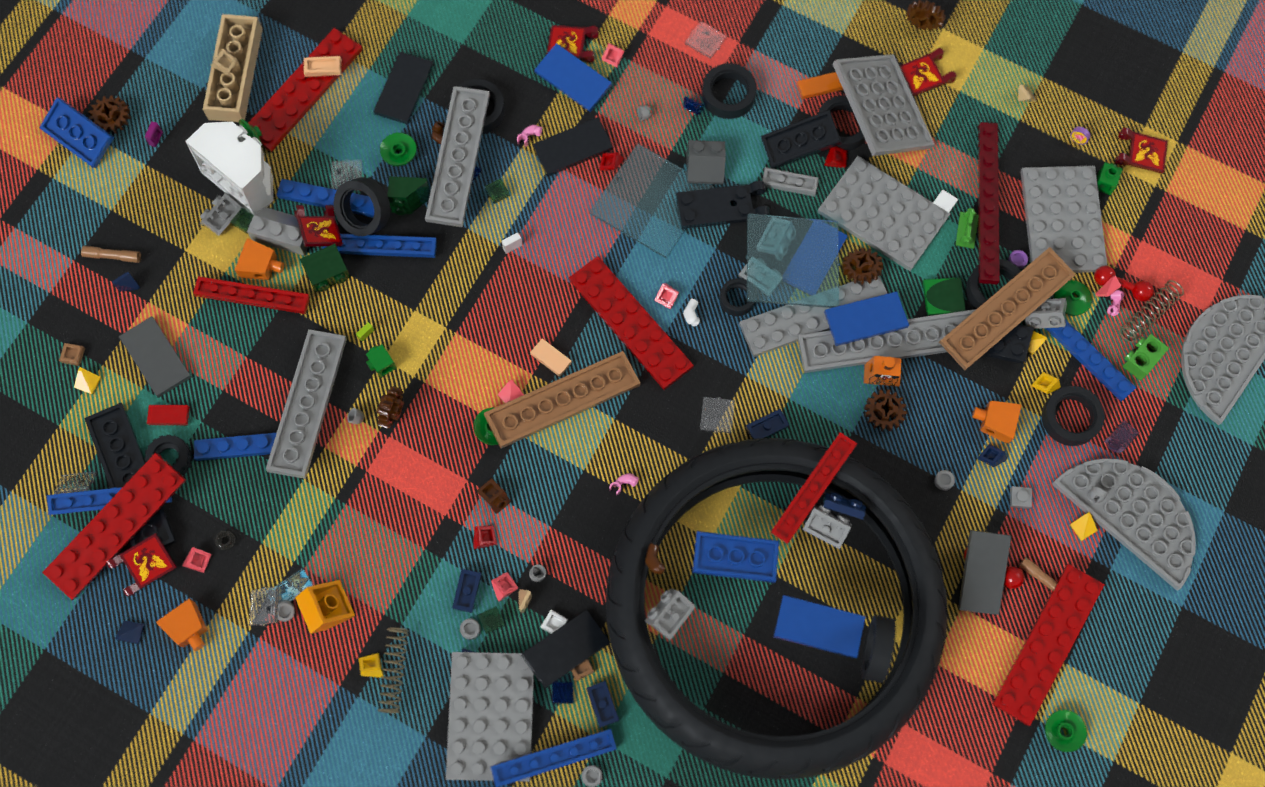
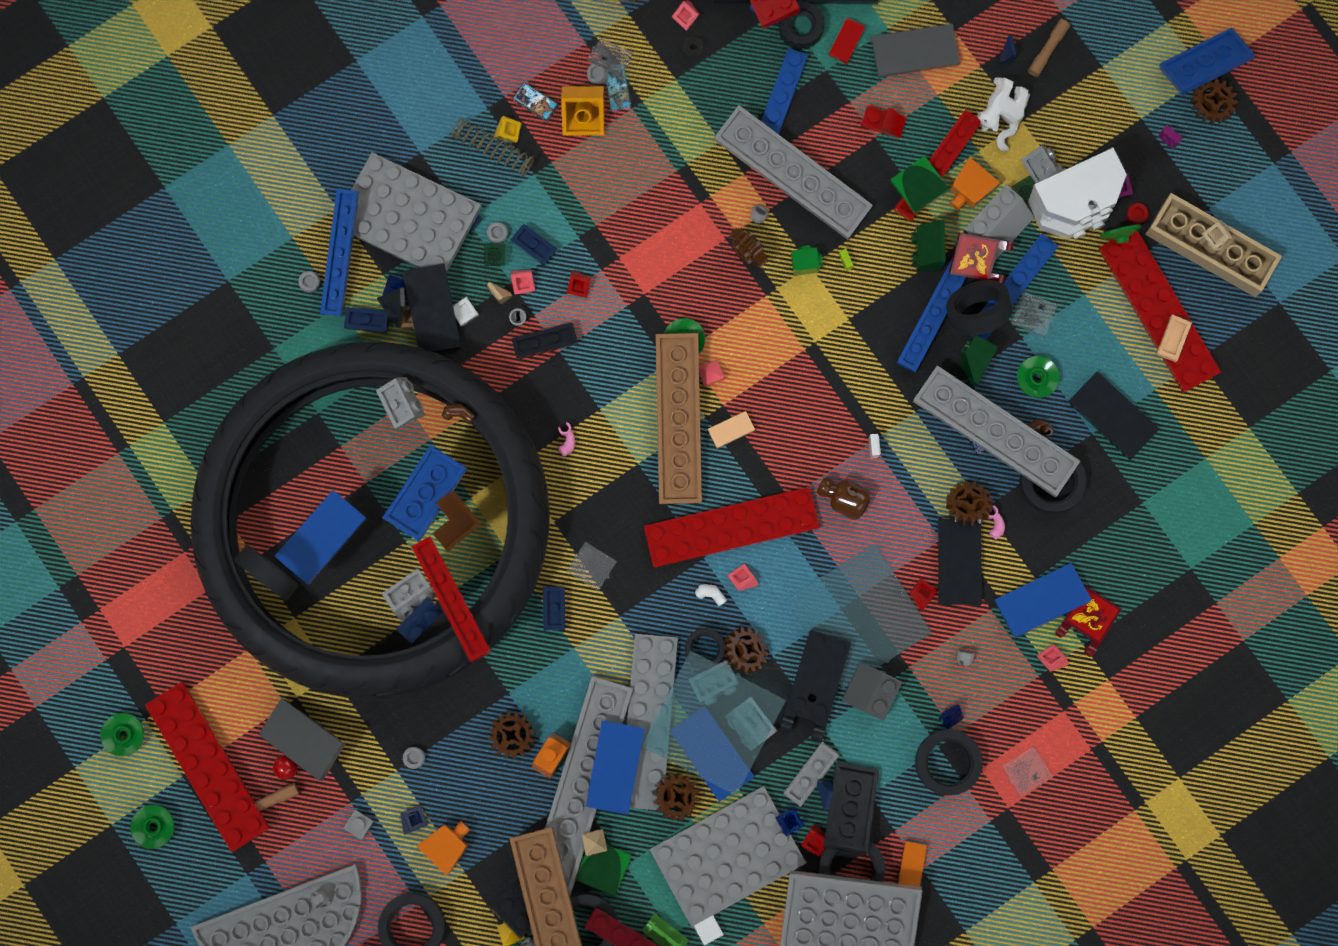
camera: 120 degrees right, 10 degrees up
(178, 262) = (1006, 108): none -> white animal
(229, 355) = (883, 121): none -> red slope
(275, 299) = (919, 184): none -> dark green tile
(334, 654) = (535, 102): none -> tile
(494, 495) = (614, 309): reddish brown bracket -> none
(497, 191) = (942, 458): clear green plate -> none
(516, 157) = (960, 505): none -> reddish brown gear
(548, 540) = (544, 341): none -> black plate
(564, 244) = (846, 497): none -> reddish brown piece
(579, 679) = (394, 305): none -> black slope
(723, 265) = (745, 650): none -> reddish brown gear
(748, 511) = (460, 521): none -> reddish brown panel
(799, 162) = (826, 792): none -> dark blue slope
(833, 178) = (789, 821): none -> clear blue slope
(930, 309) = (594, 842): none -> tan slope
(1046, 383) = (459, 920): yellow slope -> none
(1084, 526) = (298, 871): yellow slope -> none
(1131, 660) = (142, 822): none -> green dish

